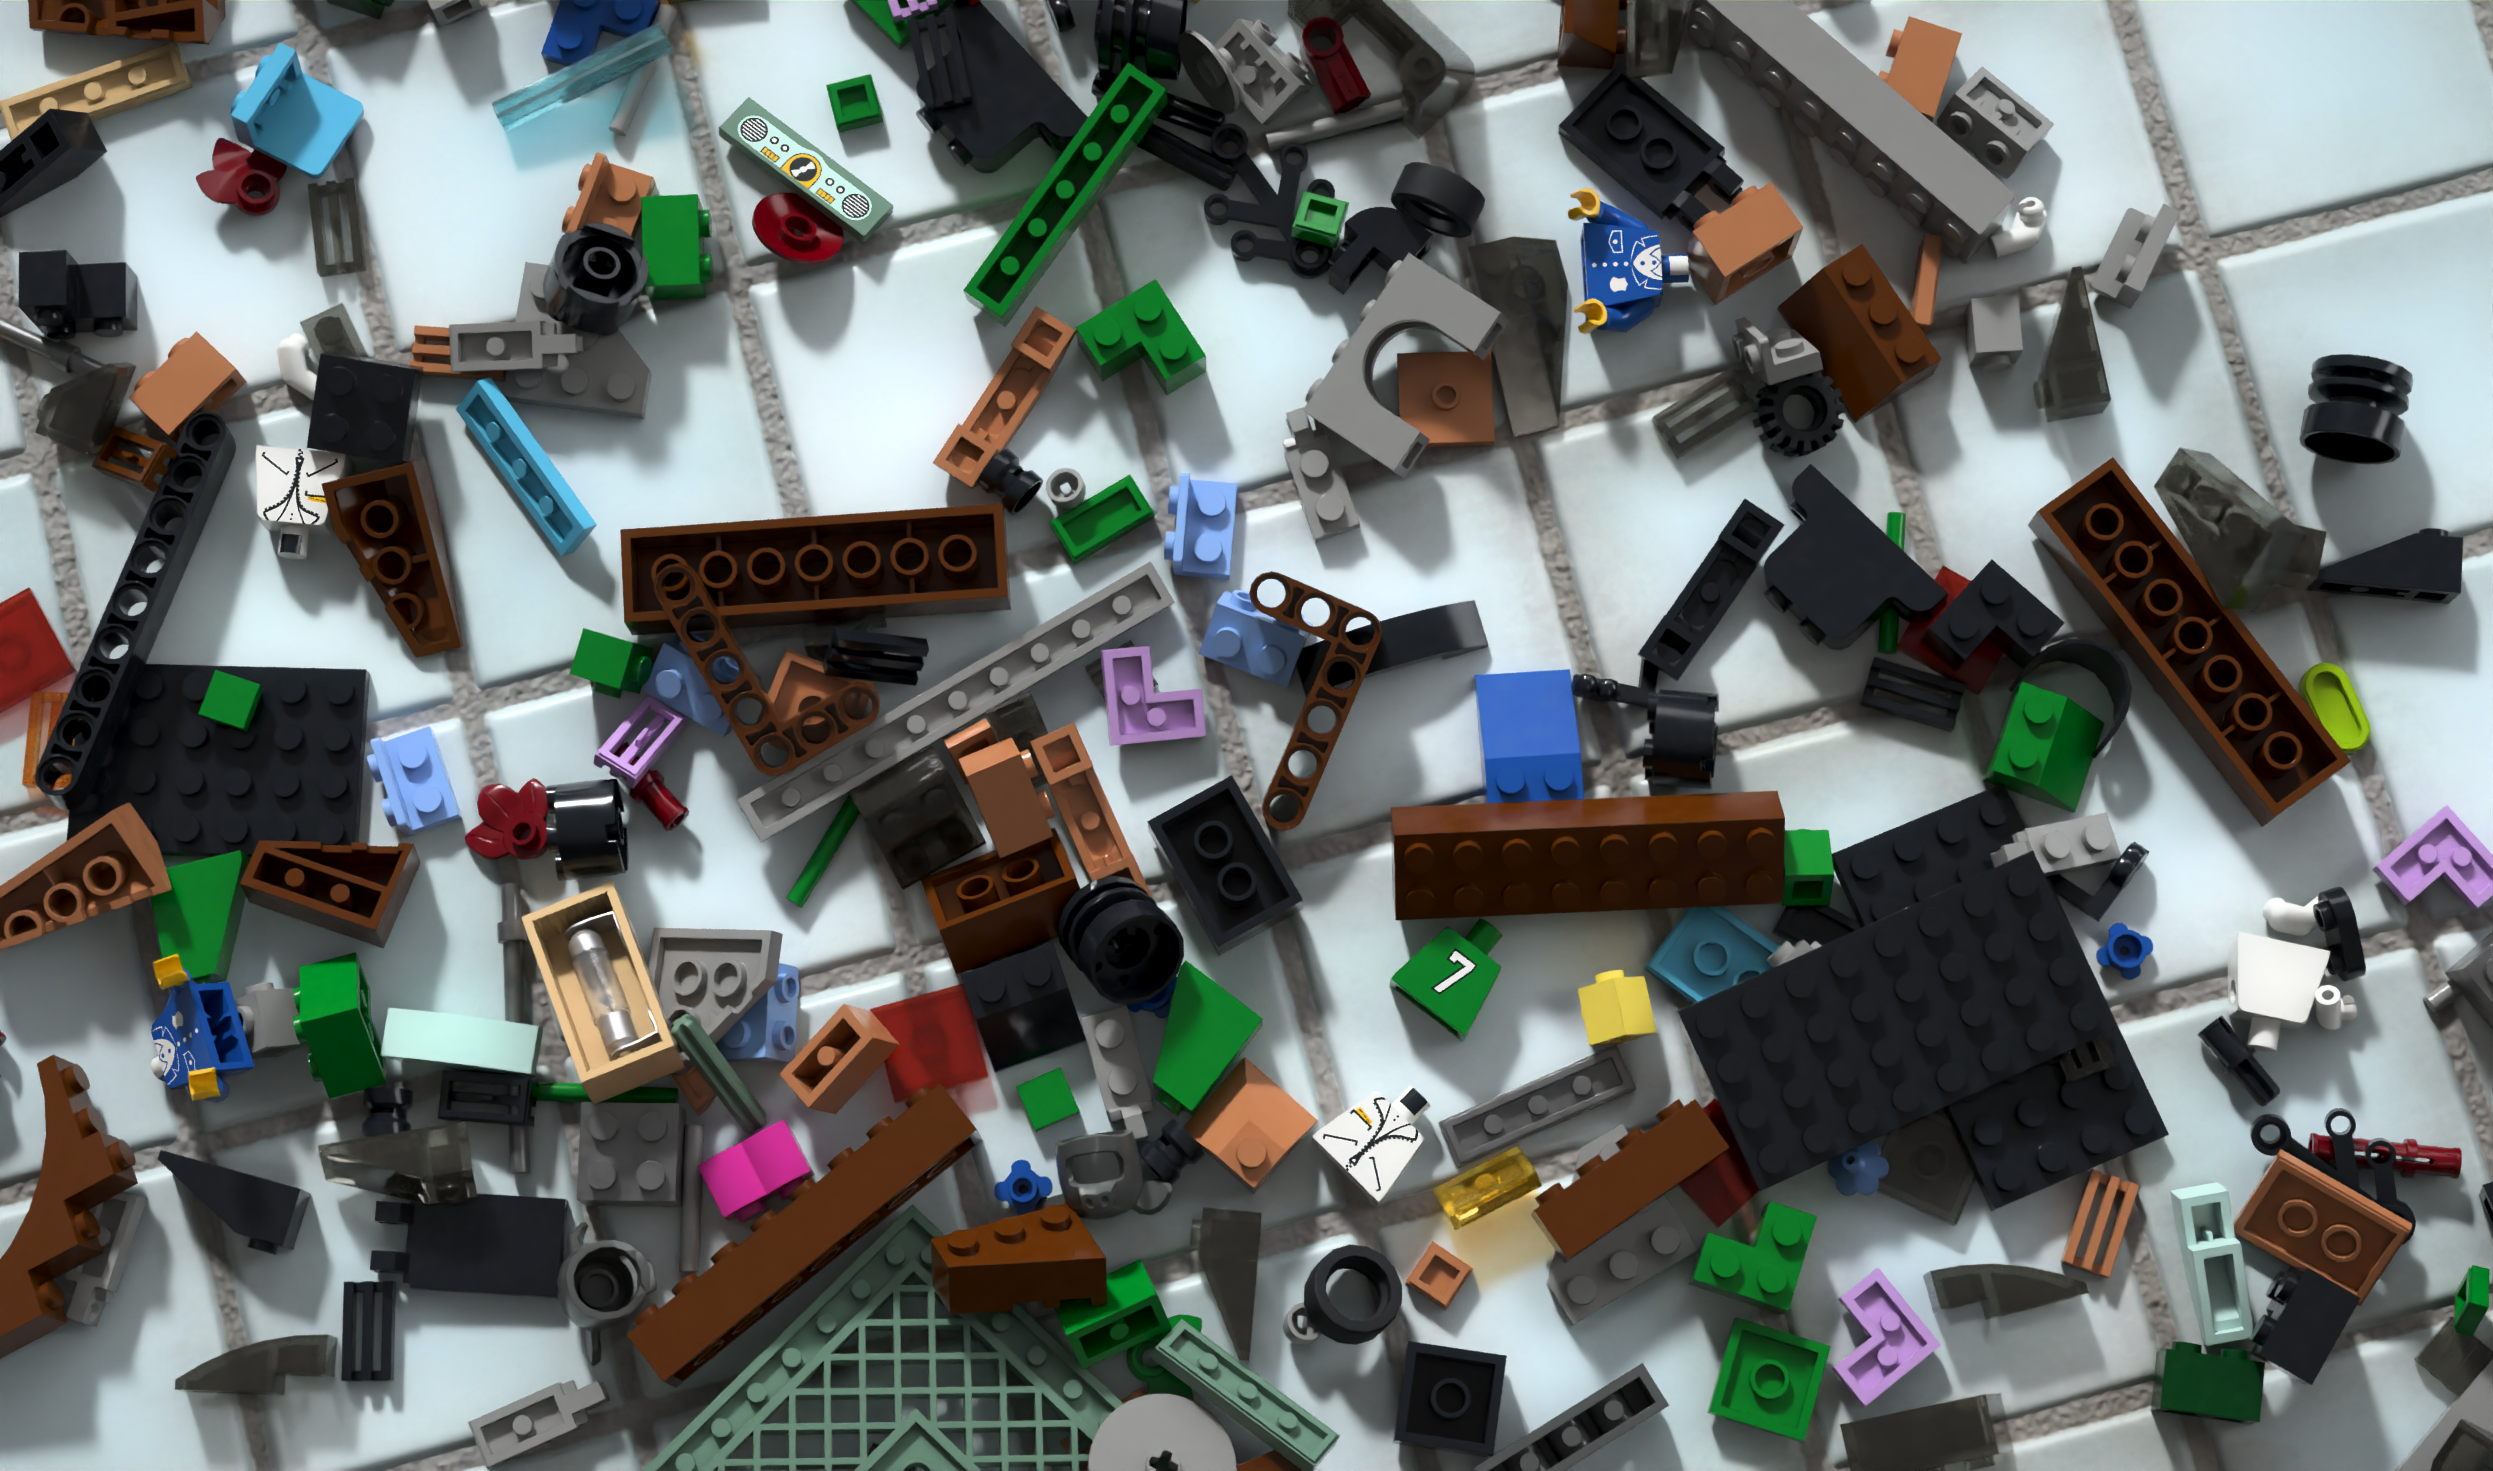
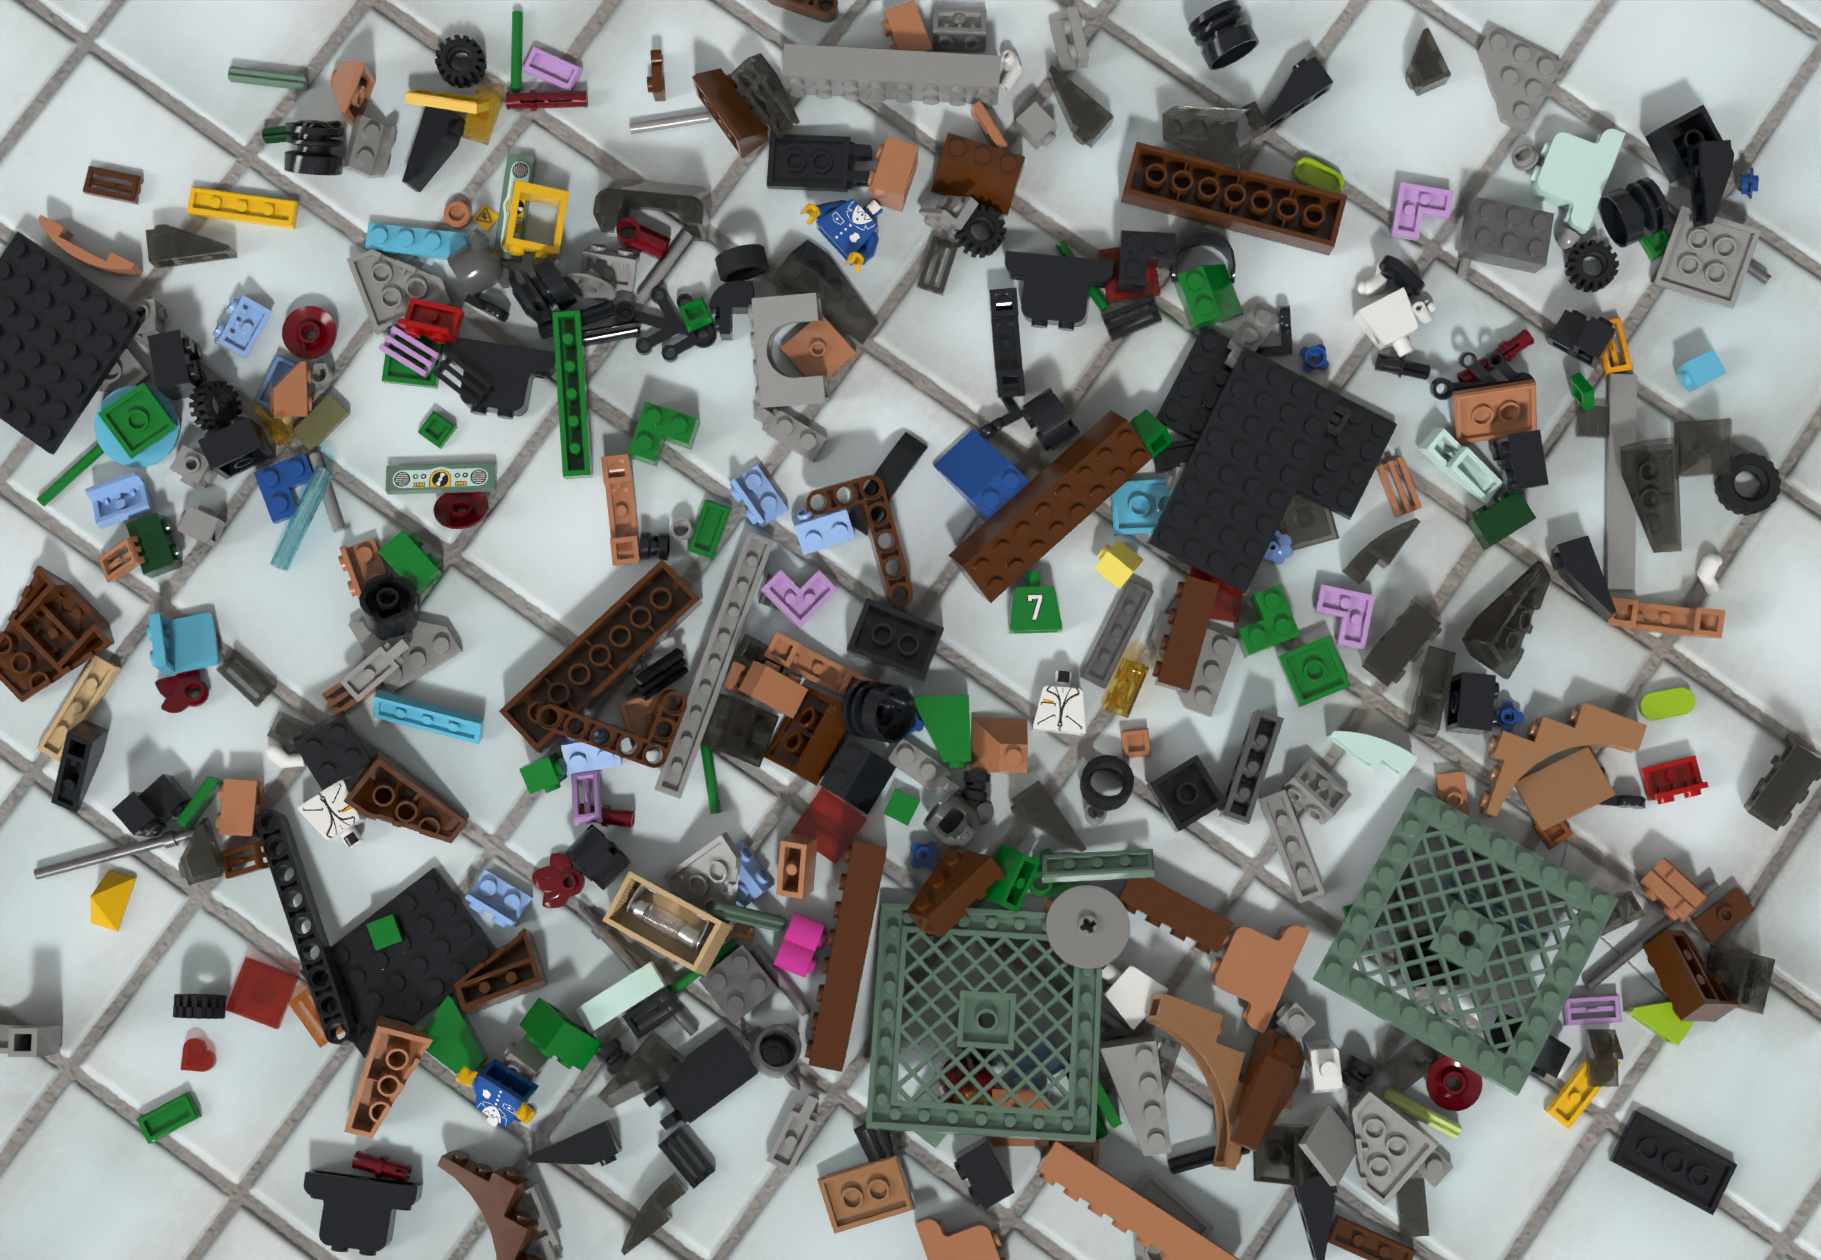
camera: 40 degrees left, 5 degrees up
(140, 338) = (199, 802): none -> green tile

